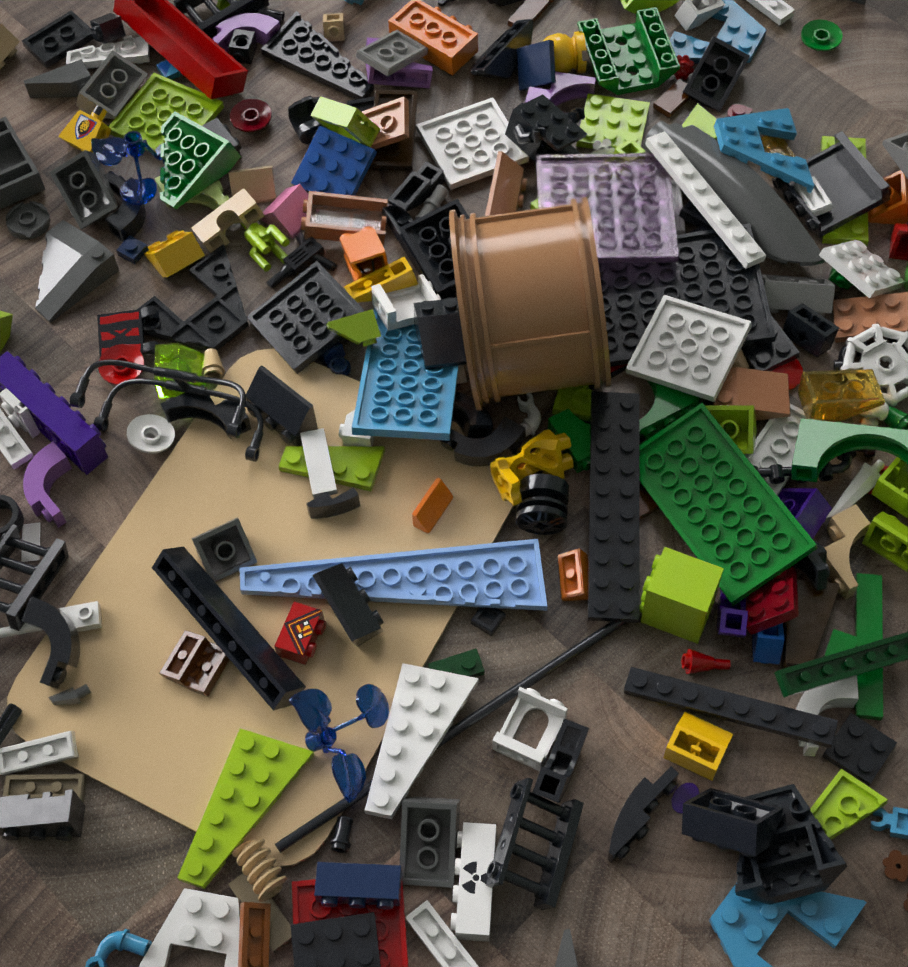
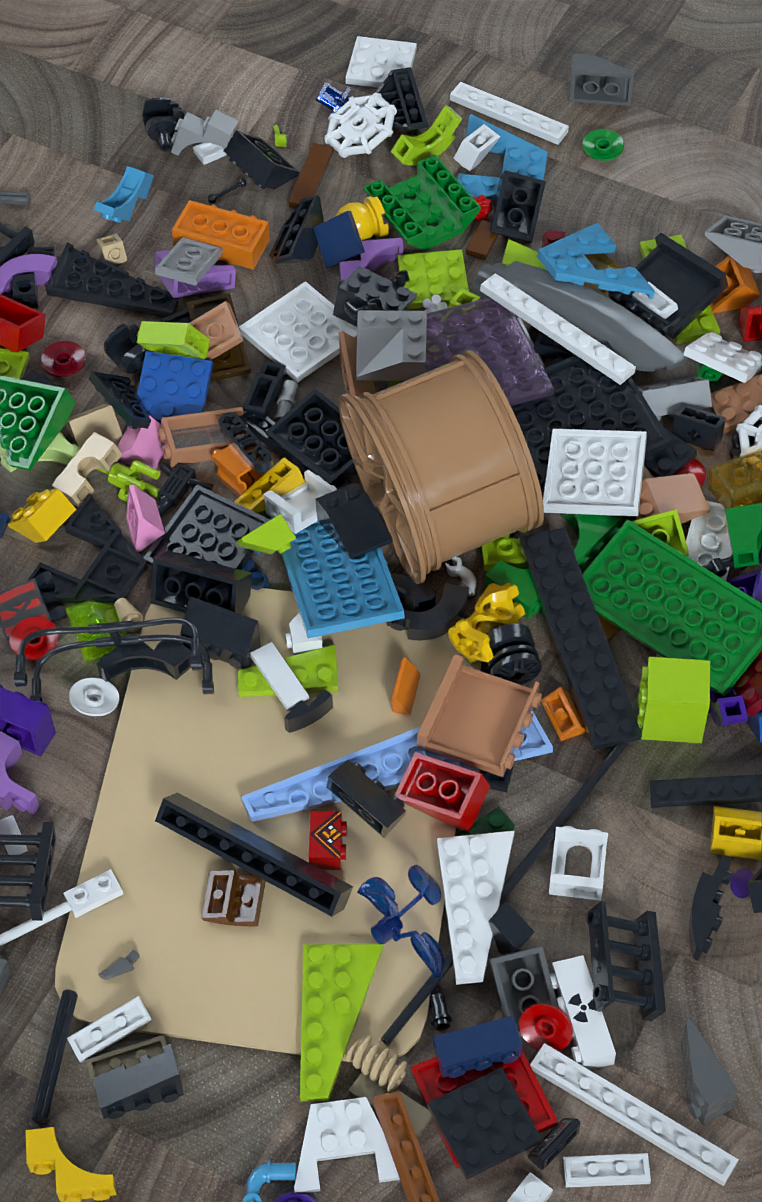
camera: 20 degrees left, 5 degrees down
(62, 636) = (78, 898): black arch -> none
(224, 549) = (219, 783): flat silver slope -> none
(259, 279) = (142, 518): none -> bright pink slope
(281, 353) = (182, 576): none -> black slope
(283, 163) = (121, 397): none -> black wing
(371, 233) = (245, 442): none -> black beam
(425, 619) = (443, 791): none -> red slope
(433, 775) = (509, 929): none -> black slope
(433, 884) = (537, 1031): none -> red dish
(485, 557) = (478, 718): none -> nougat panel
(538, 174) = (391, 345): none -> light grey slope
(560, 767) = (620, 880): black arch -> none
(698, 662) = (706, 759): red cone -> none

